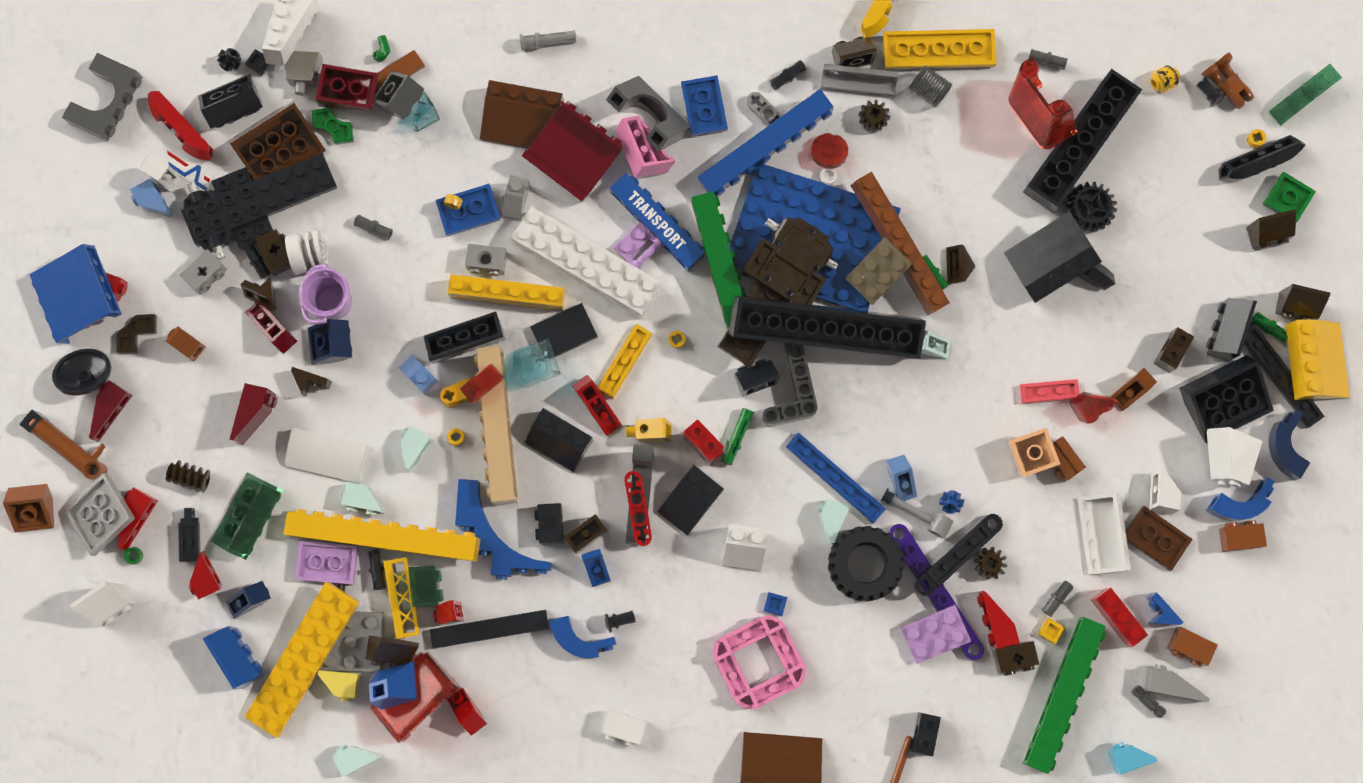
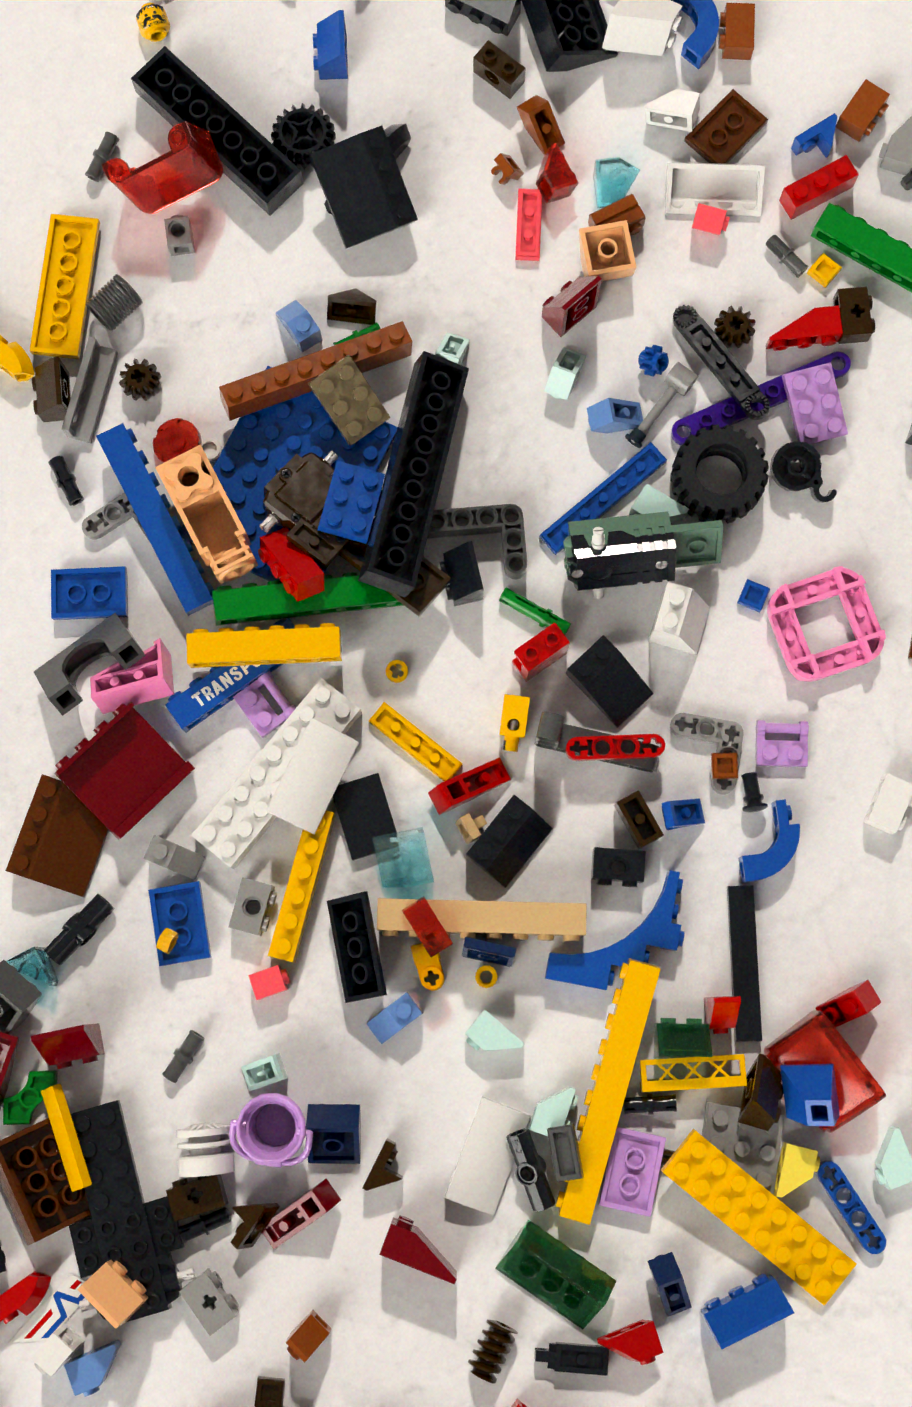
camera: 80 degrees left, 0 degrees up
(199, 202) = (114, 1293): none -> light nougat slope
(305, 154) = (66, 1137): none -> yellow tile
(317, 729) = (852, 1205): none -> blue beam
(318, 487) = (534, 1183): none -> black piece
(332, 509) = (565, 1153): none -> dark grey tile
(368, 287) = (264, 1072): none -> light aqua slope
(371, 146) = (70, 1044): none -> dark red slope
(433, 279) = (269, 982): none -> coral brick
(455, 139) = (79, 929): none -> black piece
(472, 434) = (488, 952): none -> dark blue tile
(564, 409) = (470, 828): none -> tan tile
(584, 285) = (312, 776): none -> white slope
(636, 595) = (724, 766): none -> dark orange tile
(654, 639) = (782, 752): none -> lavender plate
(660, 589) = (718, 737): none -> light grey beam
(678, 237) = (264, 646): none -> yellow brick
(741, 246) = (291, 565): none -> red brick
(772, 179) = (208, 514): none -> light nougat piece
(793, 504) = (636, 550): none -> piece
(796, 282) = (351, 502): none -> blue plate
(874, 633) = (810, 471): none -> black piece
(930, 434) = (564, 373): none -> light aqua slope
(936, 227) = (300, 325): none -> medium blue slope
(986, 431) = (572, 304): none -> dark red slope
(991, 133) = (182, 244): none -> light grey brick
(1076, 532) = (710, 219): none -> coral brick
(1093, 368) = (508, 167): none -> dark orange tile
(1096, 452) = (612, 180): none -> clear light blue slope
(1167, 218) = (331, 47): none -> blue slope

